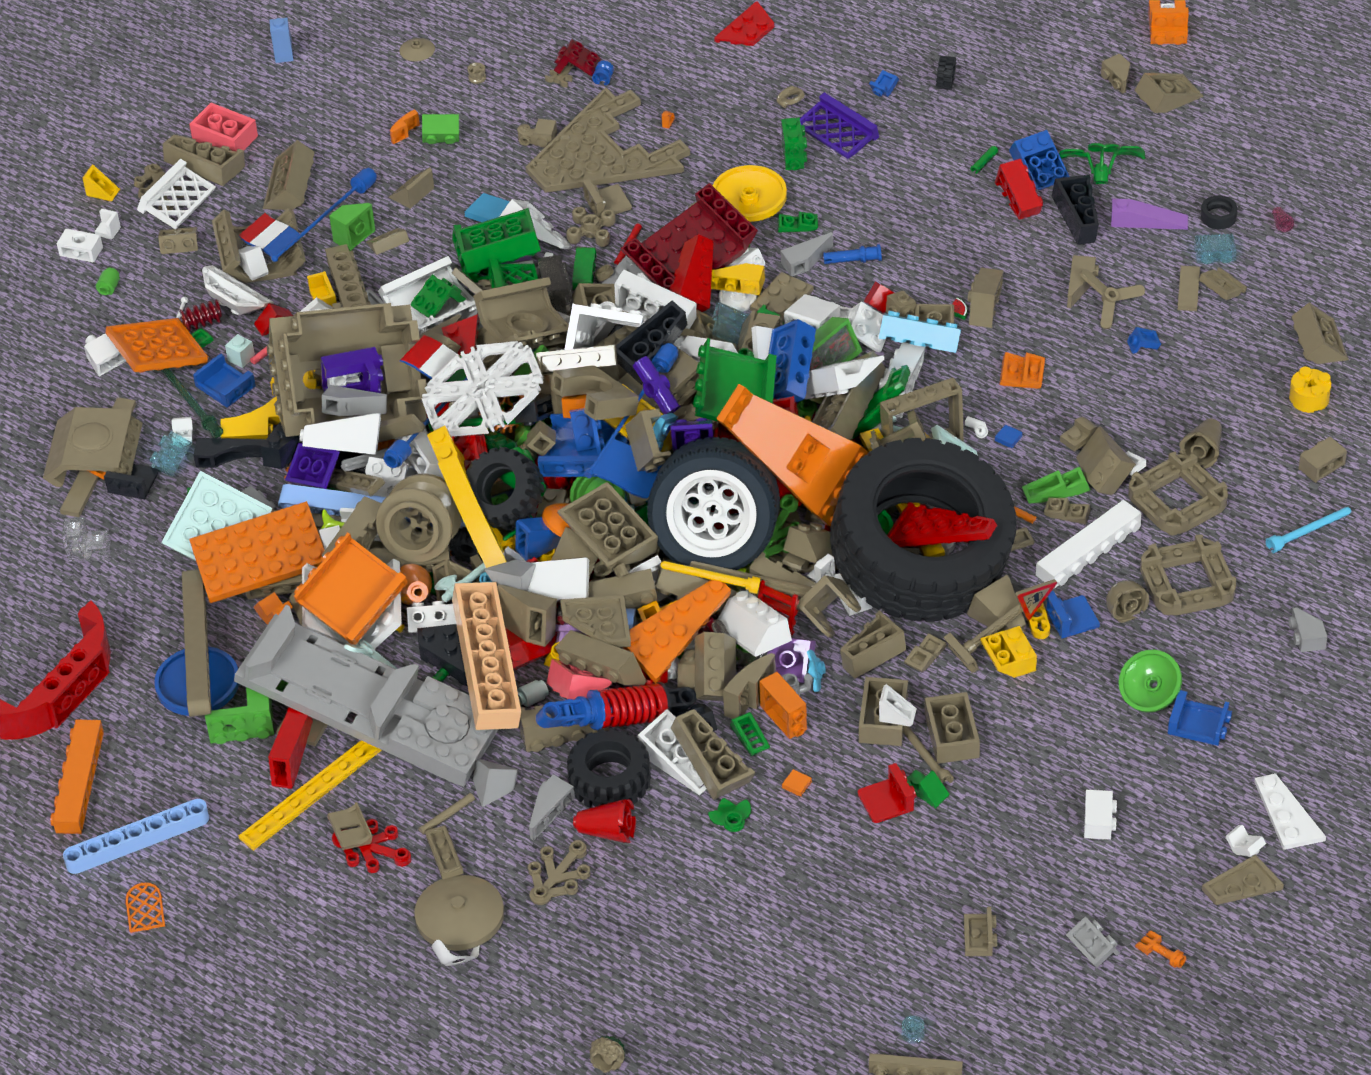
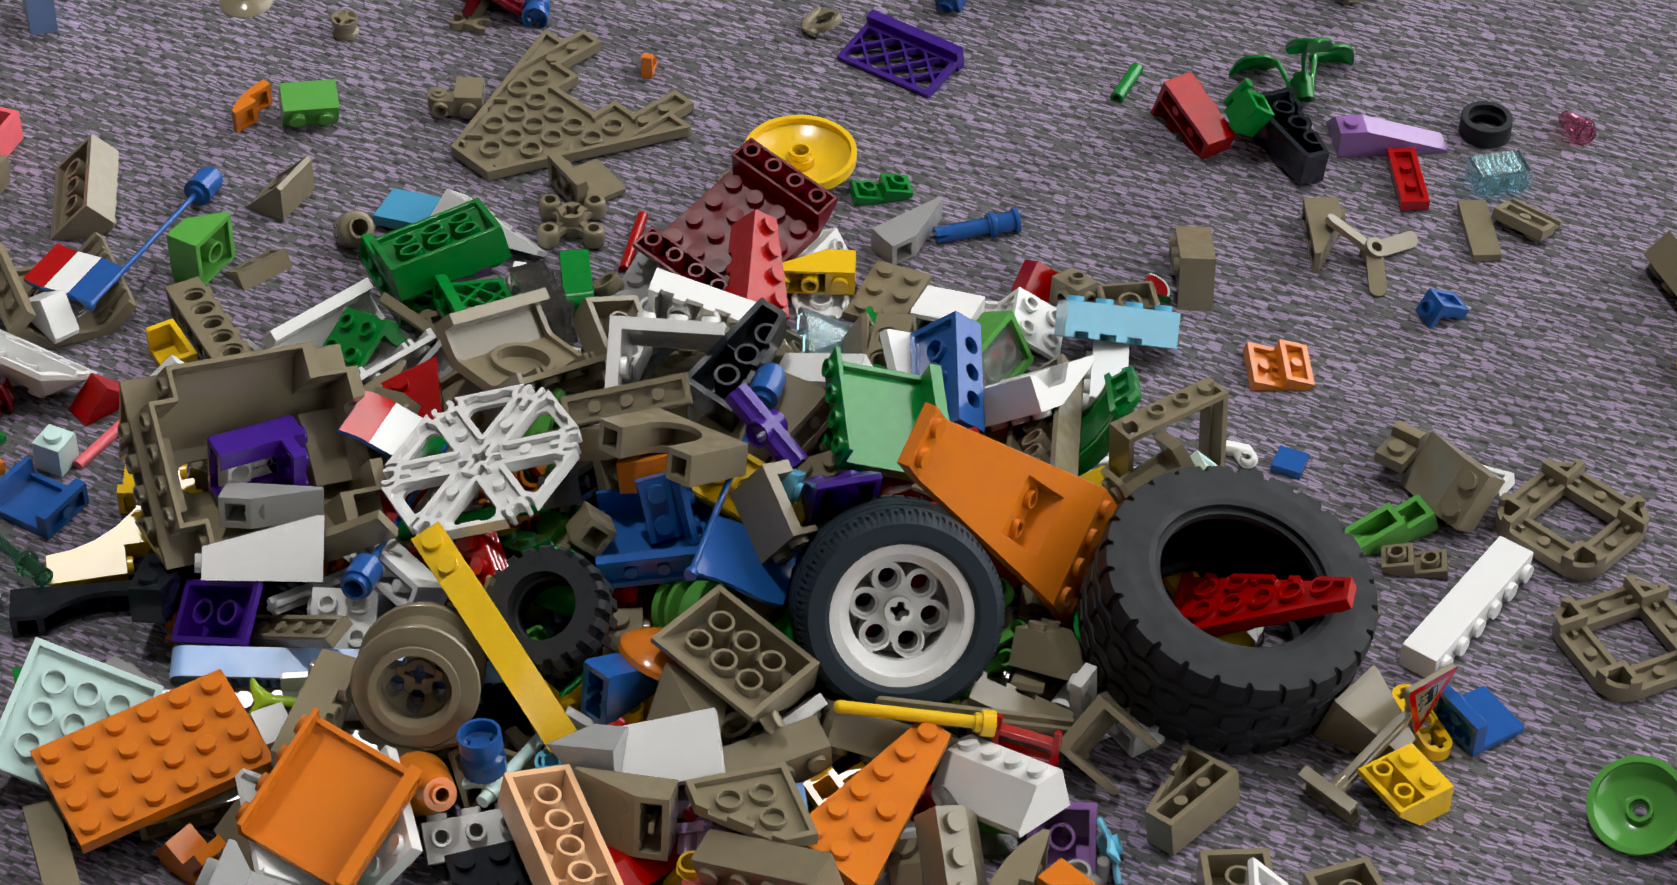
camera: 15 degrees left, 5 degrees down
(447, 568) = (481, 750): none -> blue wheel
(450, 217) = (350, 227): none -> dark tan head
(793, 143) = (847, 81): green brick -> none
(924, 655) = (1271, 802): dark tan slope -> none
(1040, 158) = (1209, 65): blue slope -> none
(1051, 189) = (1247, 110): none -> green brick
(1126, 600) = (1556, 685): dark tan cylinder -> none
(1151, 247) = (1407, 179): none -> red plate
(1203, 442) = (1586, 439): dark tan cone -> none

